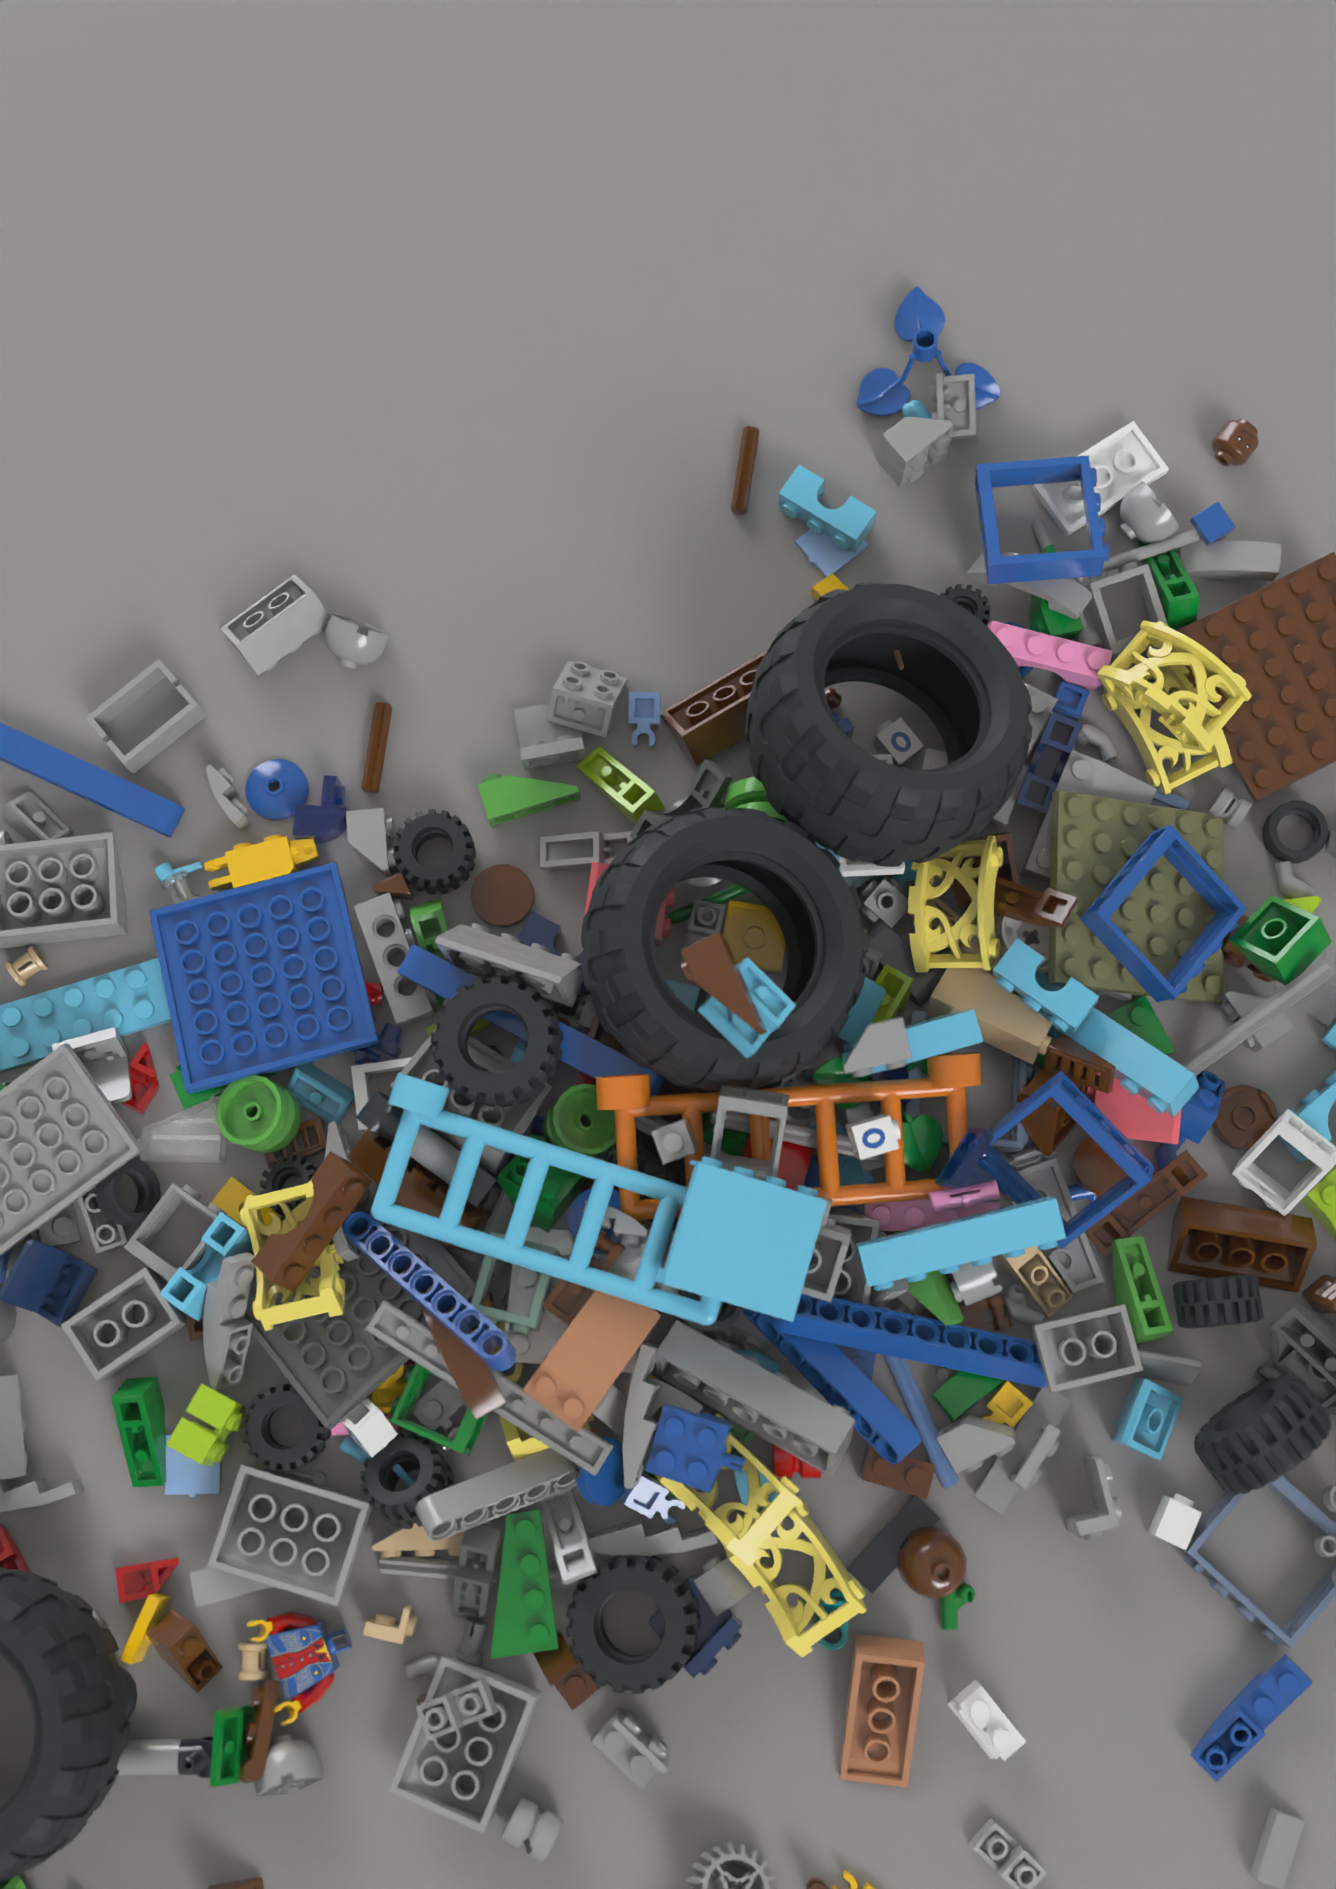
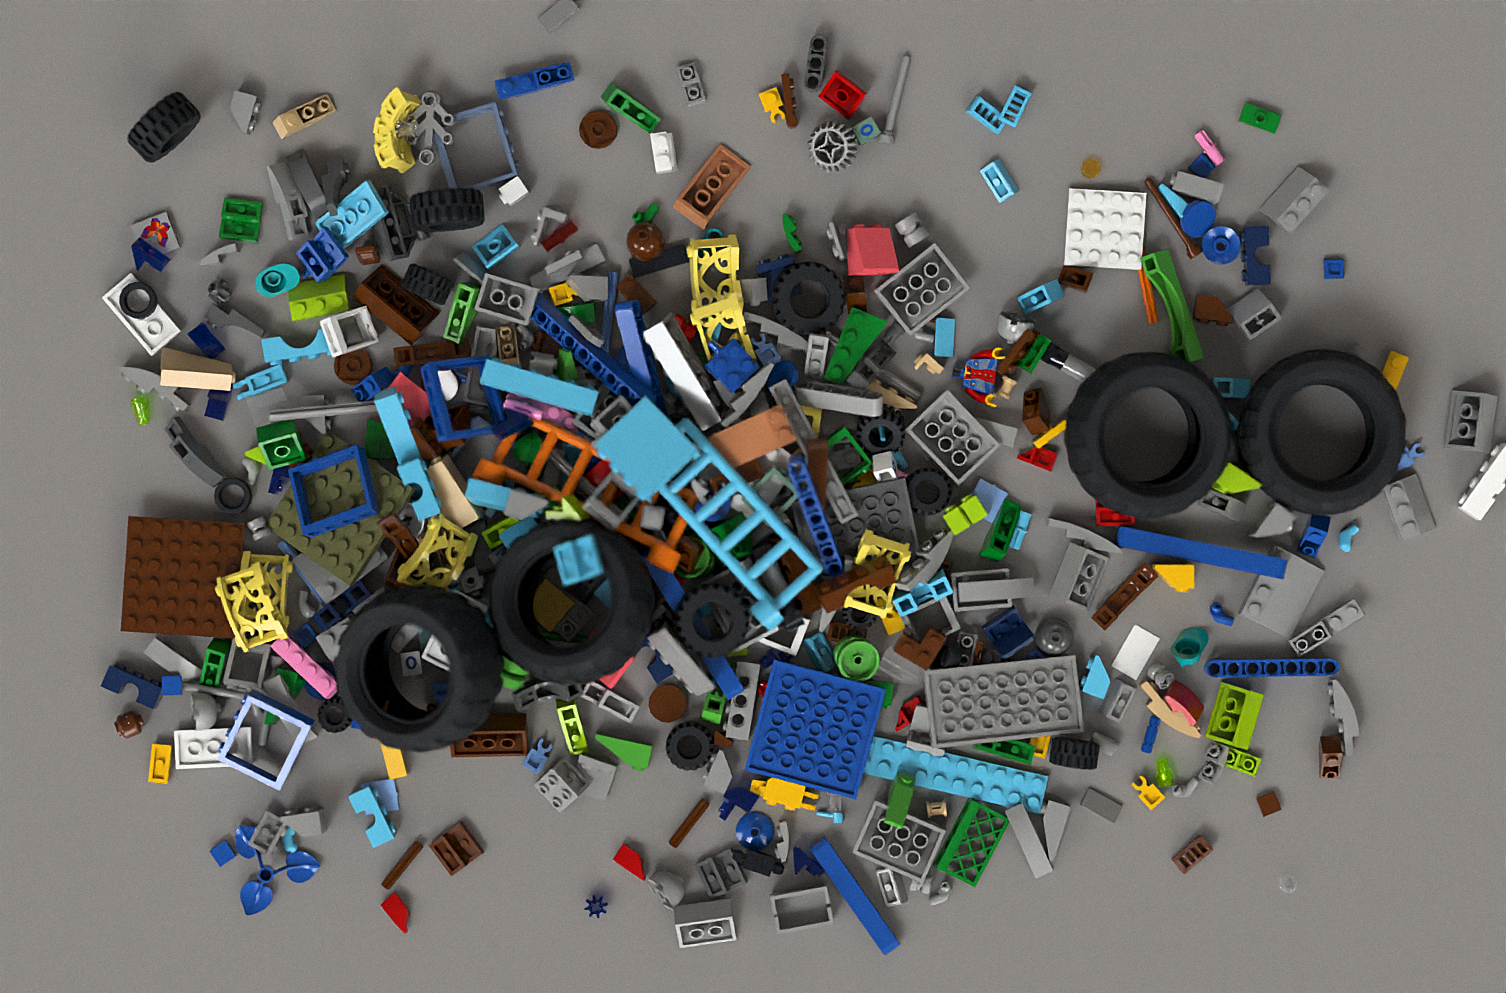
camera: 155 degrees left, 10 degrees up
(80, 943) = (899, 799): none -> bright green slope
(83, 1237) = (977, 653): none -> reddish brown tile
(98, 1335) = (996, 589): none -> light grey slope
(114, 1451) = (1020, 530): none -> medium azure axle
(160, 1179) = (923, 651): none -> reddish brown brick
(183, 786) = (802, 859): none -> clear blue slope
(246, 747) = (757, 861): none -> black piece
(273, 1840) = (1040, 296): none -> medium azure slope
(292, 705) = (721, 873): none -> dark grey slope
(391, 1682) = (944, 337): none -> medium azure slope
(429, 649) = (630, 861): none -> red slope
(449, 568) = (598, 911): none -> clear blue gear
(456, 1709) = (915, 307): light grey slope -> none
(577, 1756) = (870, 251): none -> coral slope
(590, 1126) = (690, 552): none -> reddish brown slope
(683, 533) = (456, 848): none -> reddish brown slope
(715, 405) = (397, 911): none -> red slope
(716, 971) = (584, 584): reddish brown slope -> none
(725, 1717) = (789, 227): none -> green slope
(805, 1080) = (569, 510): none -> lime slope
(873, 1136) = (551, 463): white brick -> none
(938, 1371) = (587, 330): none -> light grey tile
(998, 351) = (223, 853): none -> blue tile
(1064, 1492) = (559, 236): none -> clear red pin
(1078, 1763) = (630, 107): none -> green slope
(1105, 1696) = (598, 129): none -> reddish brown tile
(1159, 418) = (160, 763): none -> yellow plate
(1248, 887) = (276, 481): none -> clear blue slope
(1290, 497) = (149, 690): none -> dark blue arch

